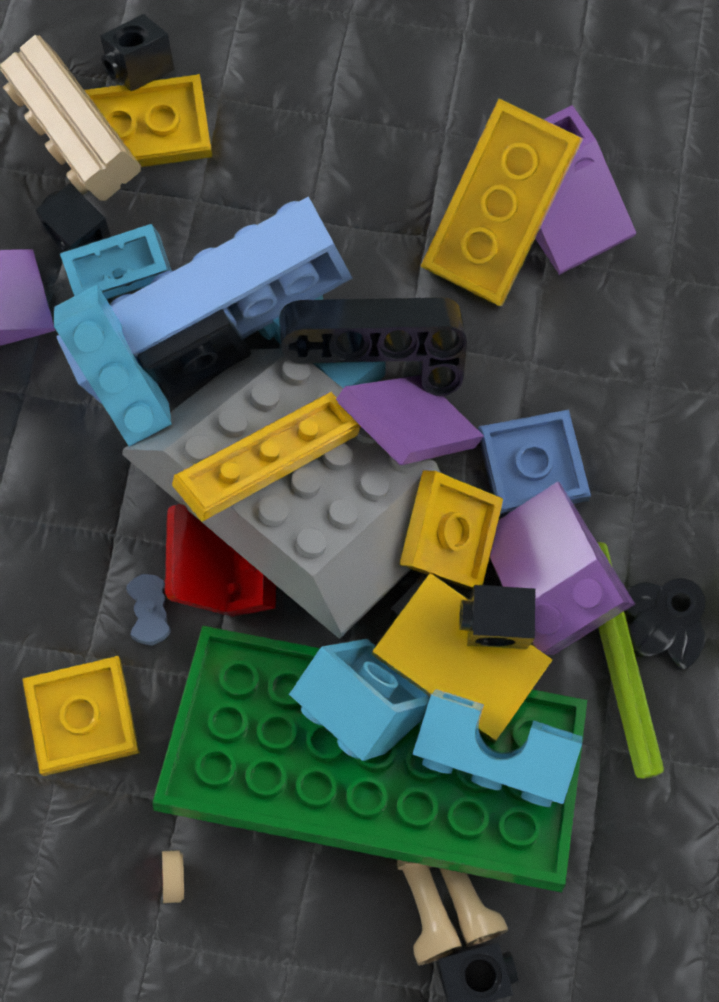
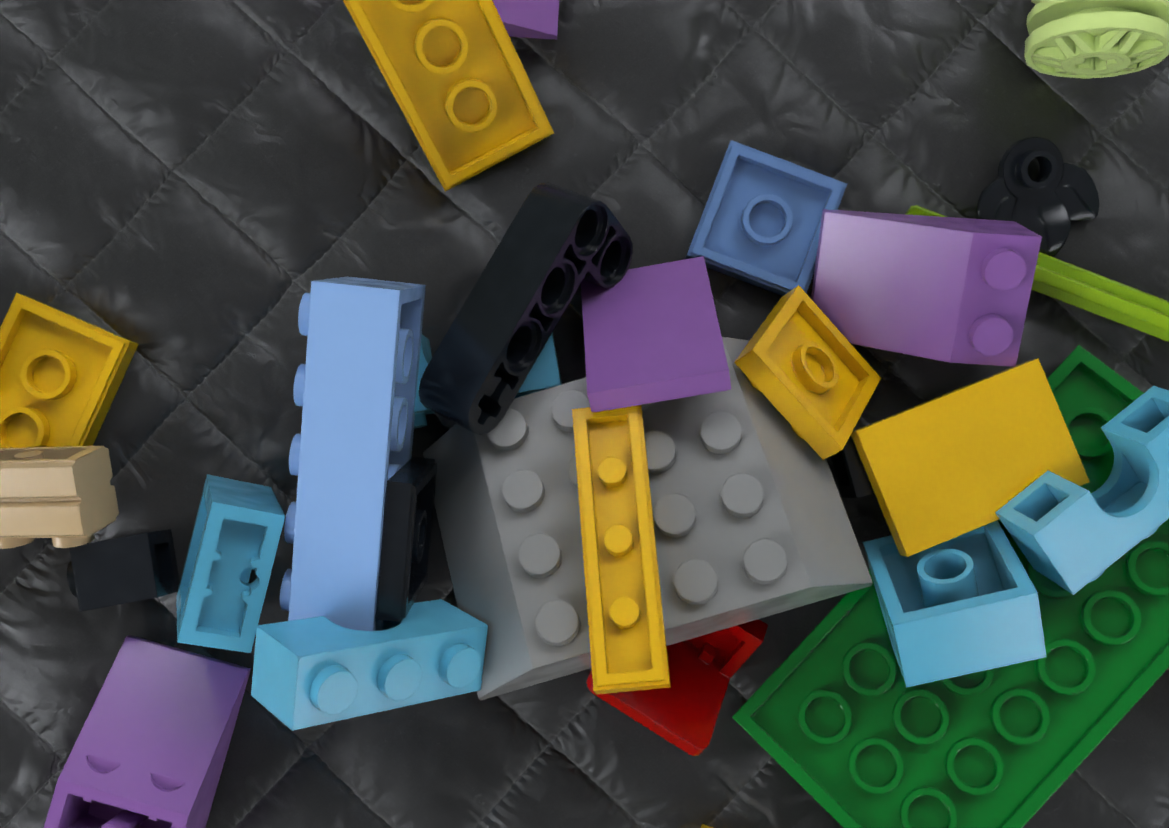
camera: 55 degrees left, 15 degrees up
(149, 609) = (649, 752): sand blue piece -> none
(499, 616) = (973, 390): black brick -> none

